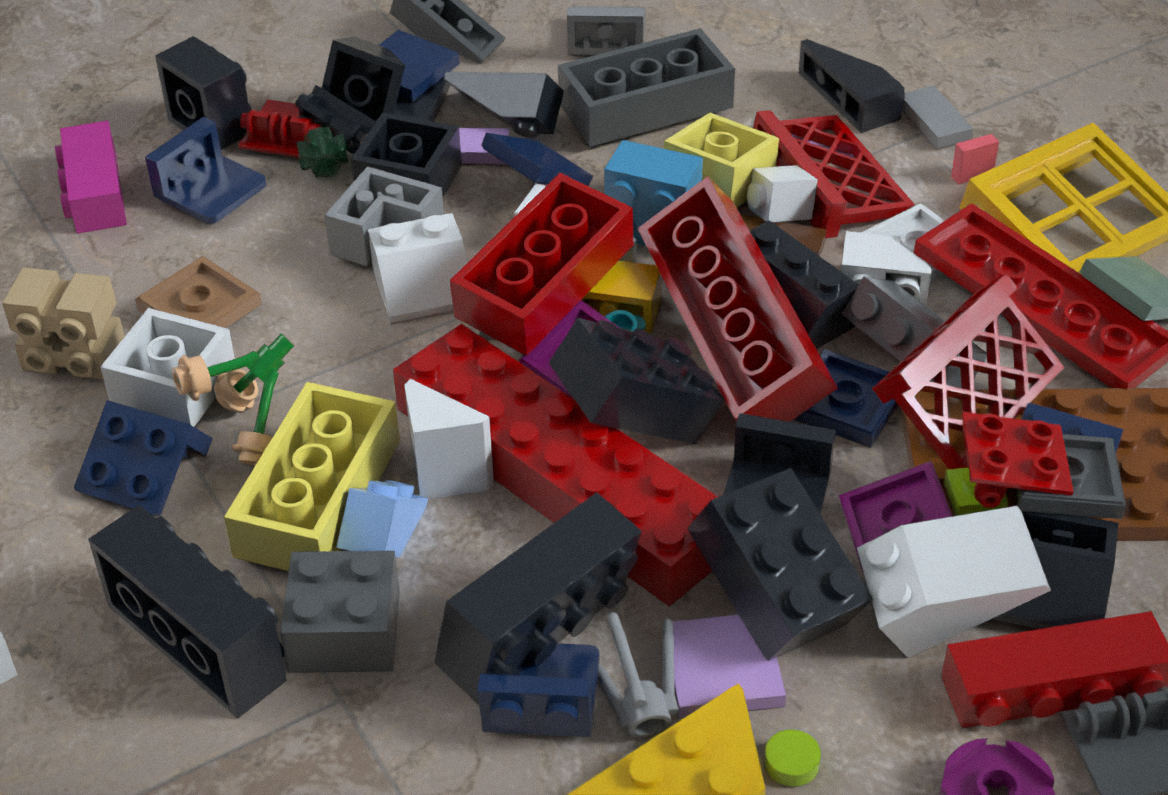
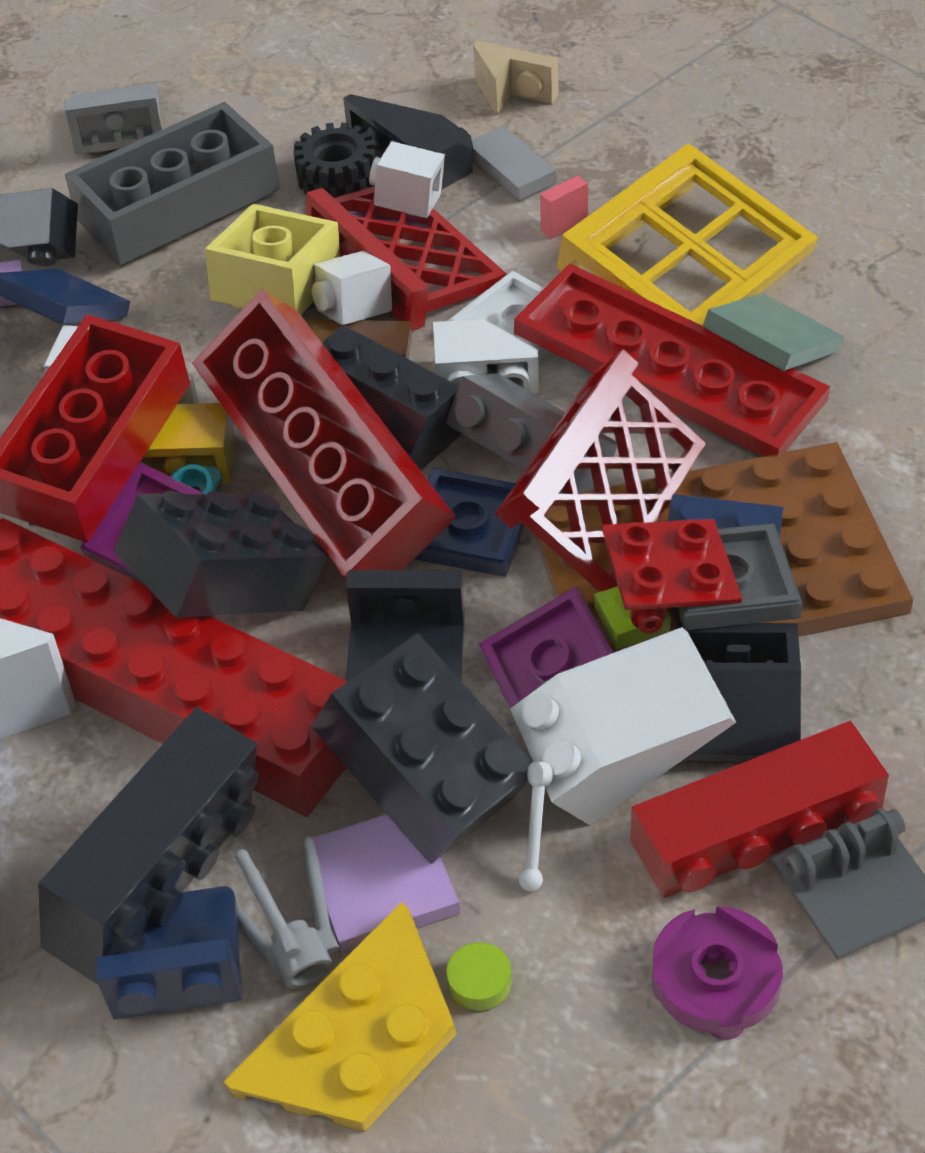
camera: 10 degrees left, 5 degrees up
(649, 179) = (194, 300): dark azure brick -> none
(785, 90) = (334, 159): none -> black tyre
(844, 114) = (407, 179): none -> white brick
(873, 604) = (539, 776): none -> white hinge
(951, 44) = (514, 72): none -> tan slope

